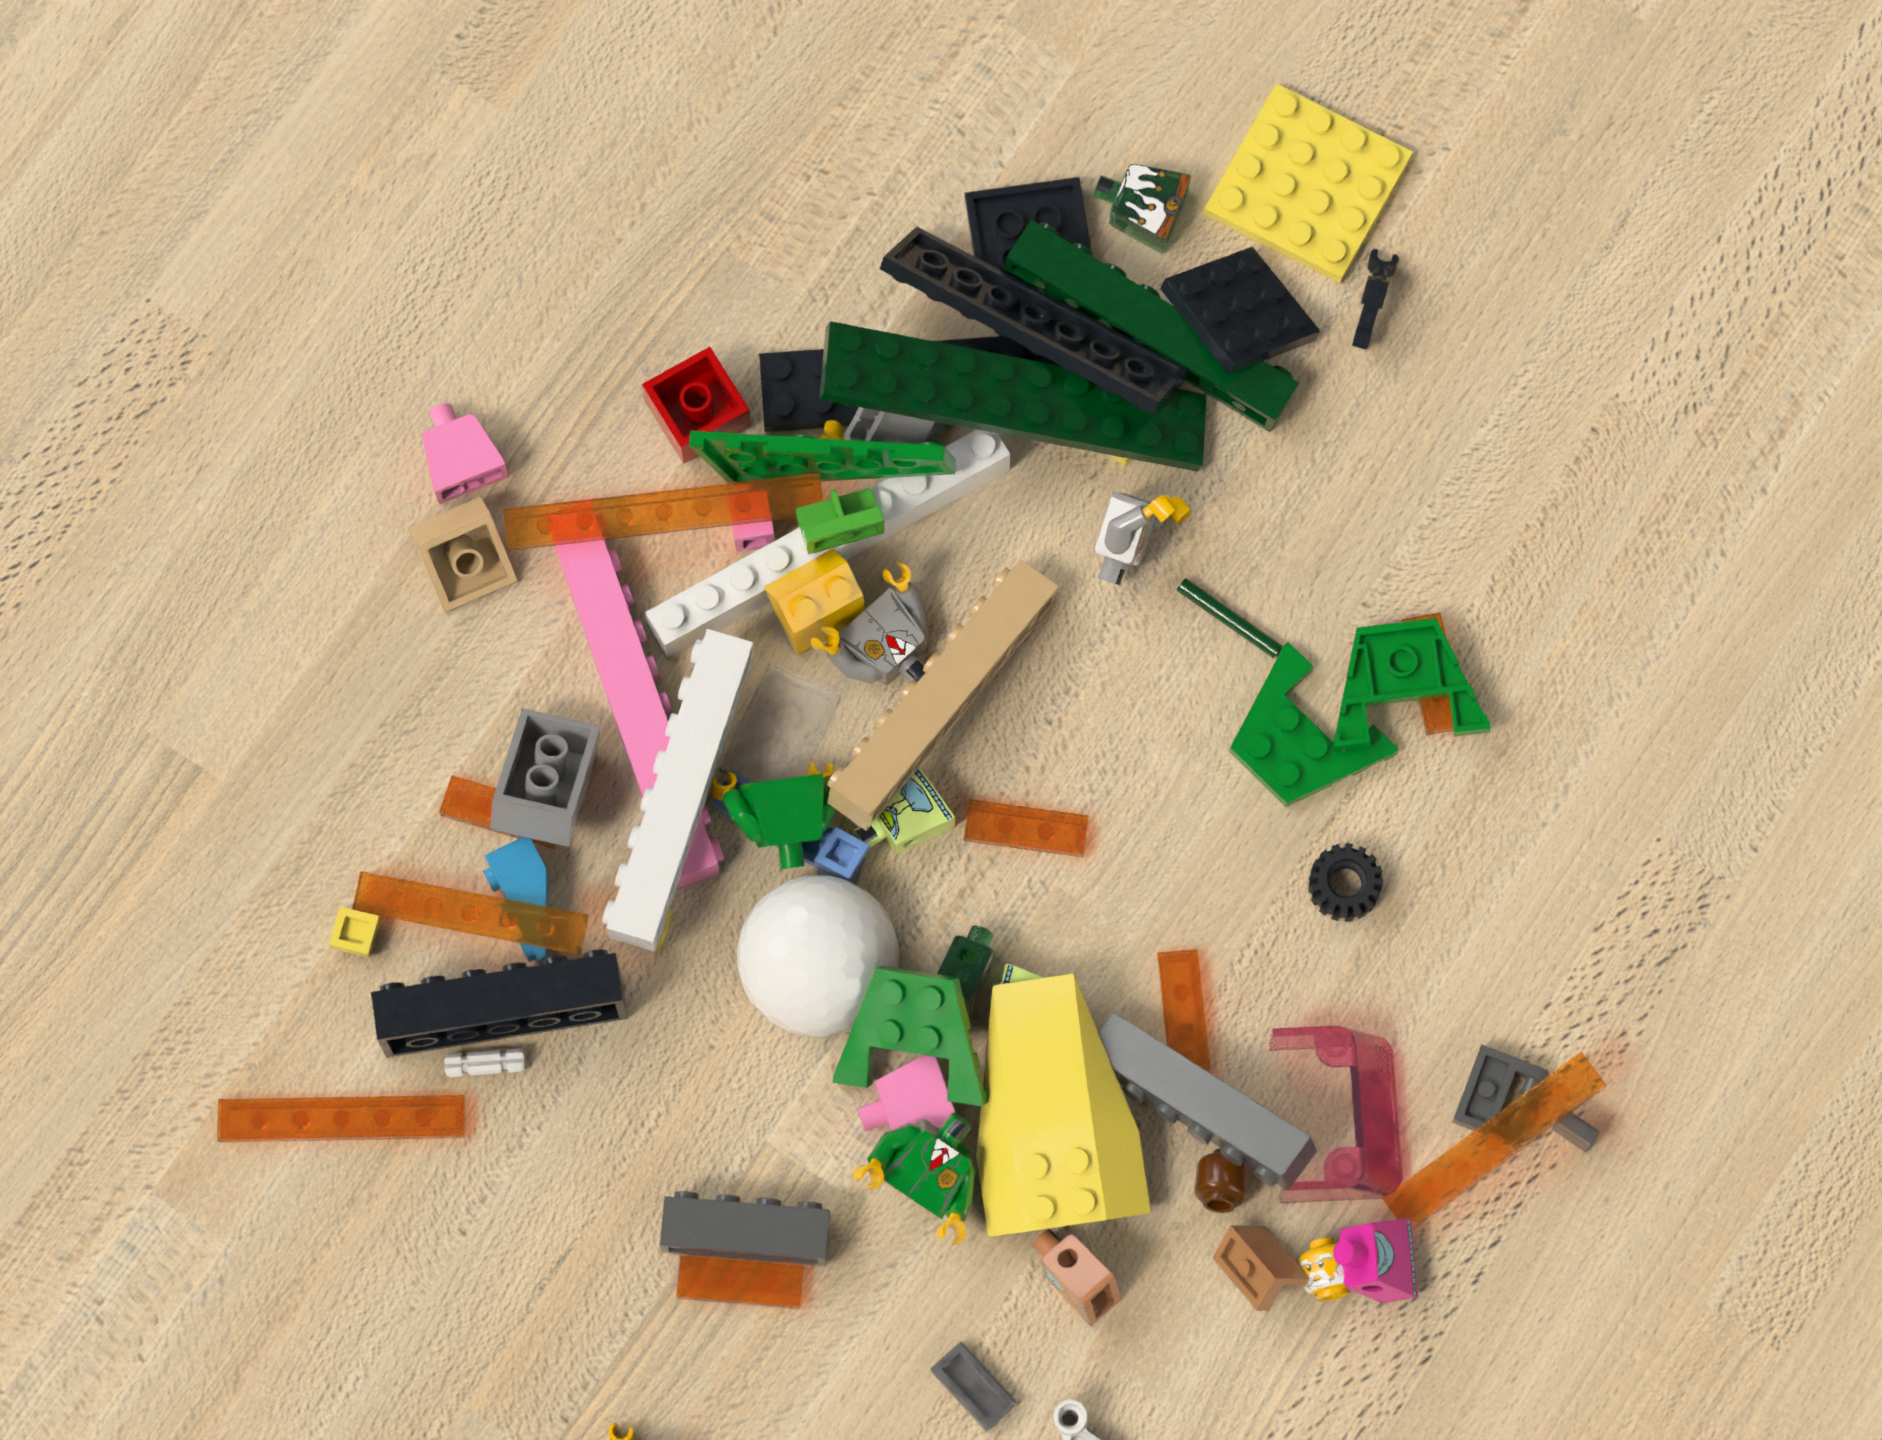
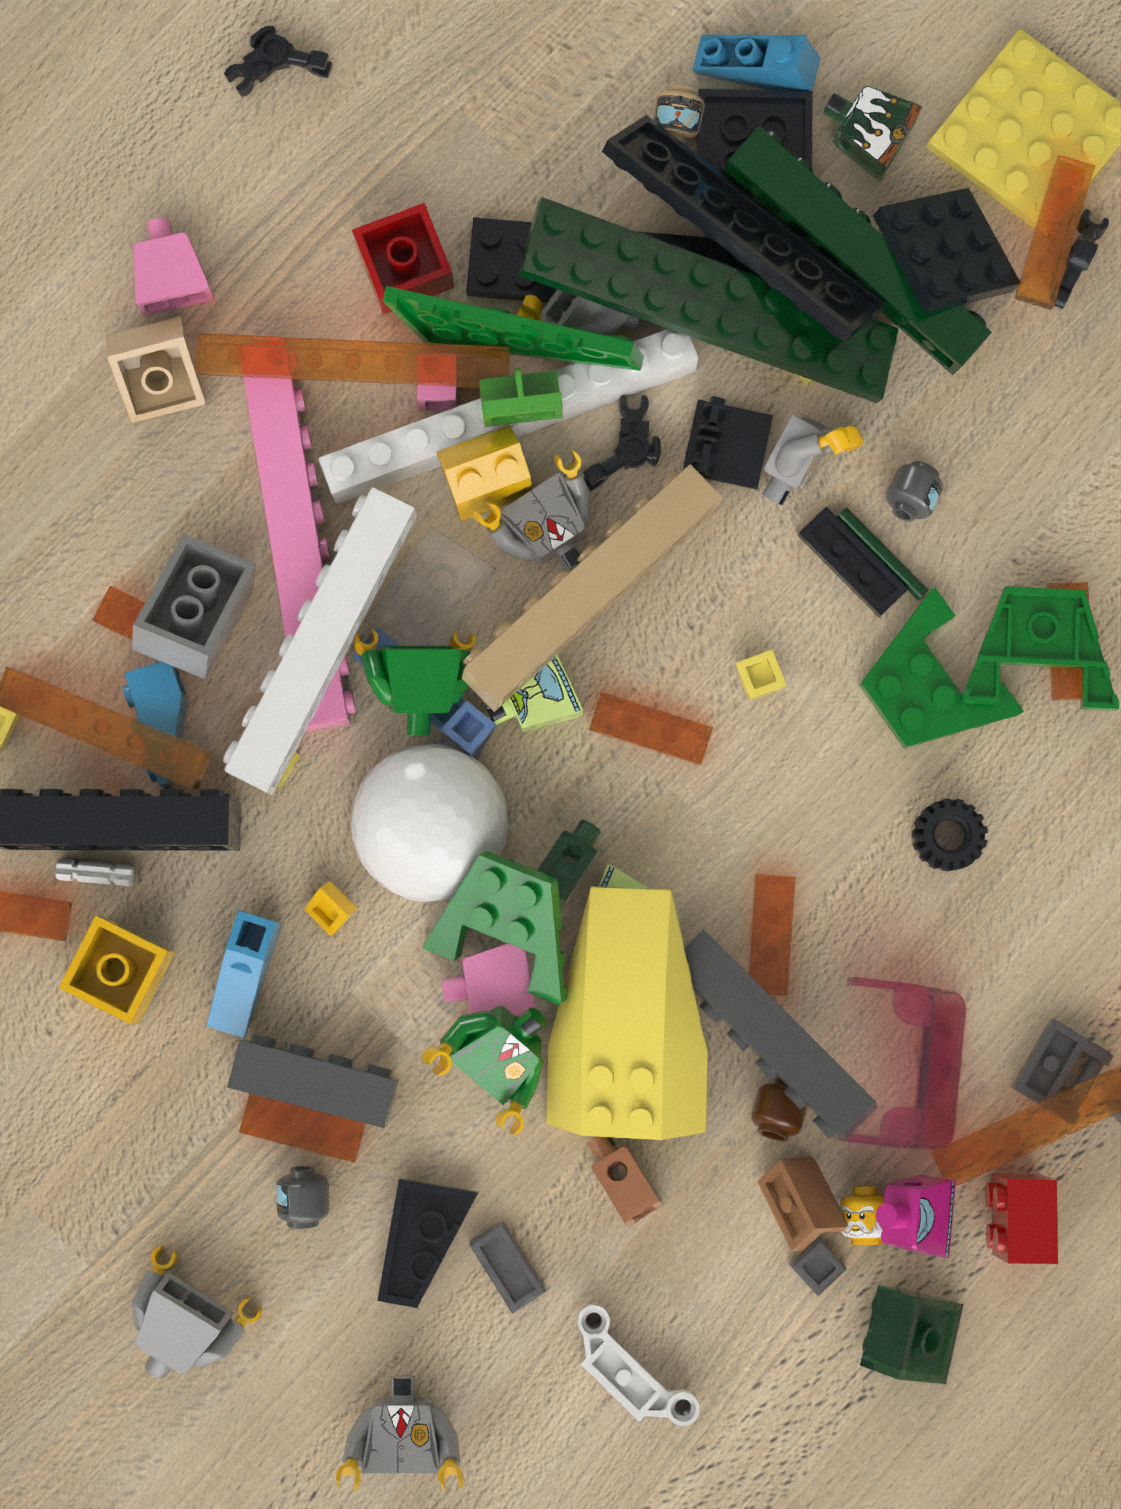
camera: 10 degrees right, 10 degrees up
(526, 1151) = (117, 970): none -> yellow brick
(528, 225) = (272, 54): none -> black piece
(654, 1133) = (243, 973): none -> dark azure slope
(731, 1057) = (330, 908): none -> yellow plate
(753, 1348) = (302, 1197): none -> dark grey head
(879, 1369) = (419, 1237): none -> black wing
(949, 217) = (679, 111): none -> head
(959, 553) = (632, 448): none -> black piece
(1020, 156) = (759, 60): none -> dark azure slope
(1055, 534) = (728, 443): none -> black hinge
(1127, 756) = (760, 675): none -> light yellow plate
(1201, 631) = (852, 562): none -> black tile
(1250, 551) = (914, 491): none -> dark grey head
(1288, 1332) = (818, 1266): none -> flat silver tile
(1344, 276) = (1054, 232): none -> clear orange tile
(1394, 1380) = (911, 1335): none -> clear green slope
(1483, 1241) = (1023, 1218): none -> red brick

